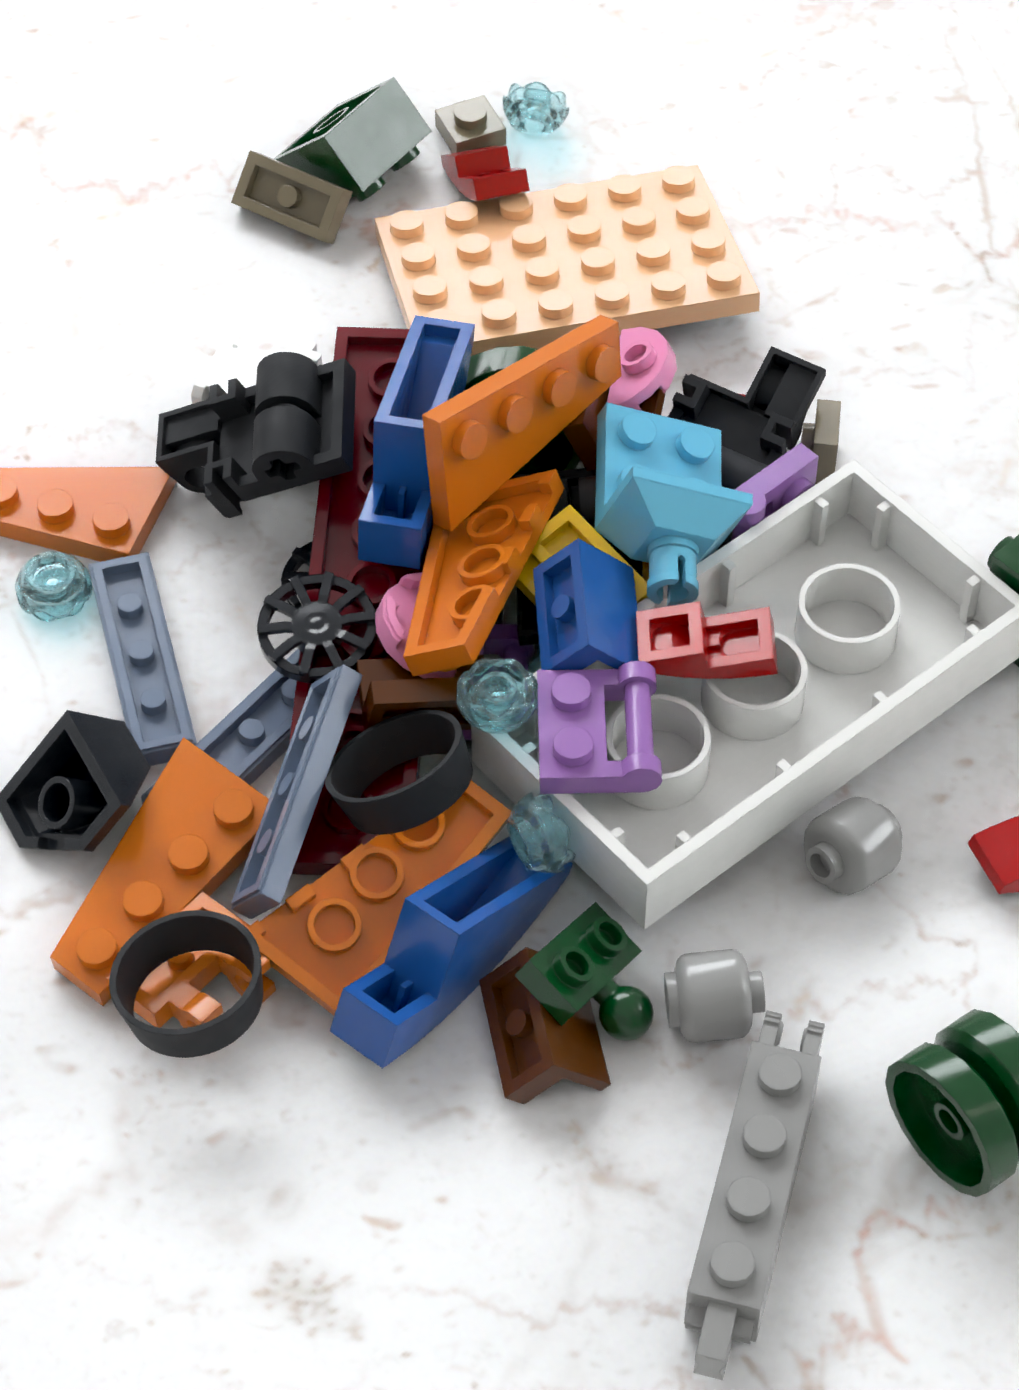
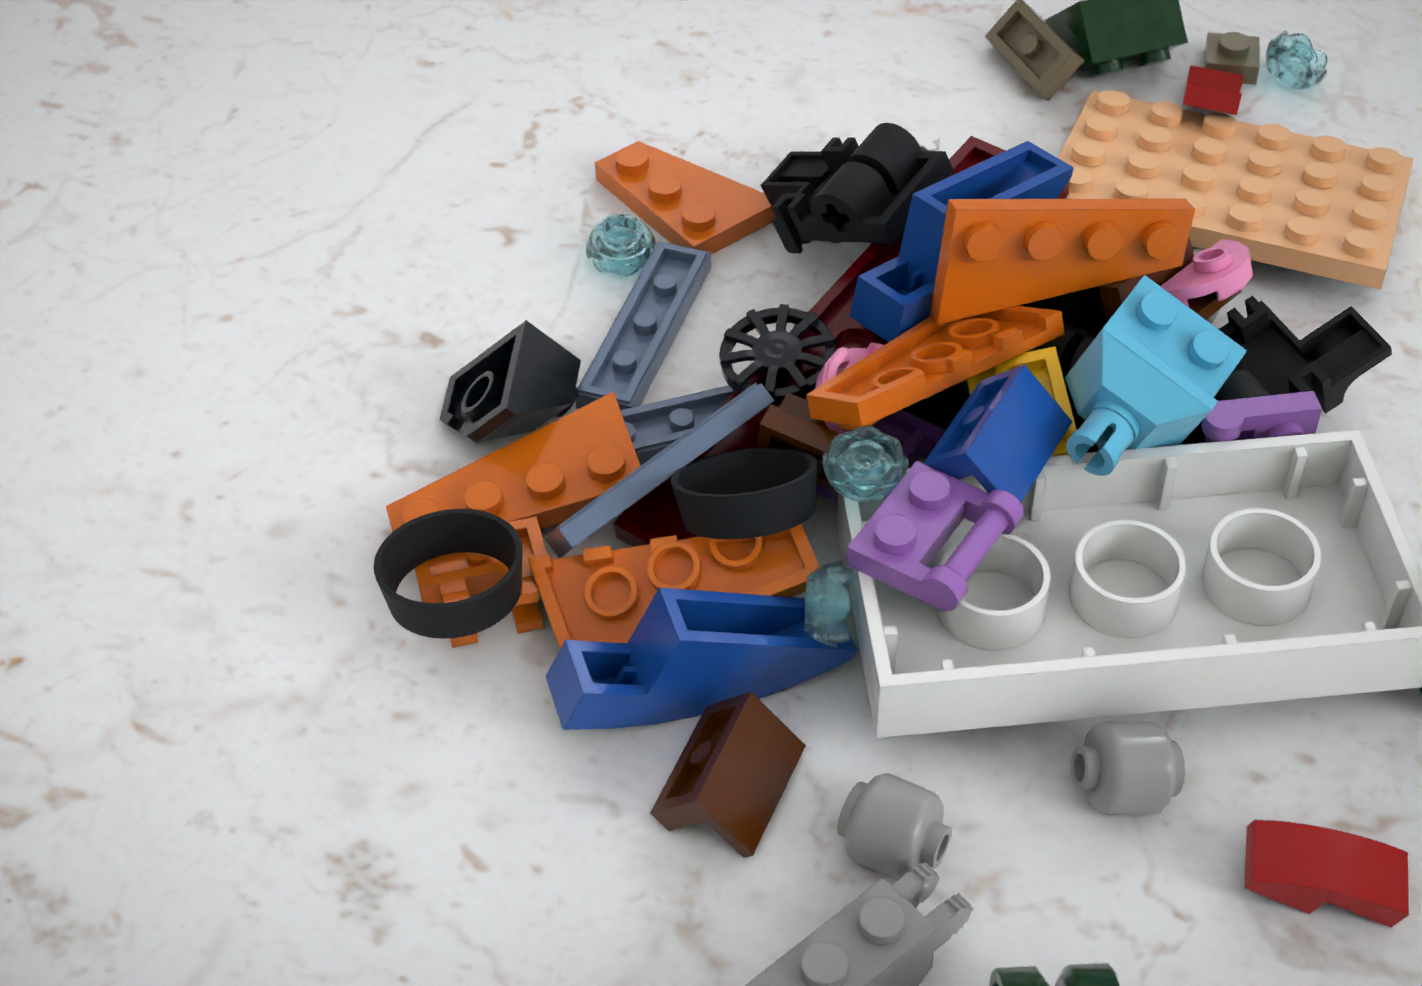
camera: 35 degrees right, 5 degrees down
(582, 967) = (796, 737): dark green plate -> none
(721, 646) = (1077, 507): slope -> none
(823, 436) = (1367, 411): dark tan plate -> none

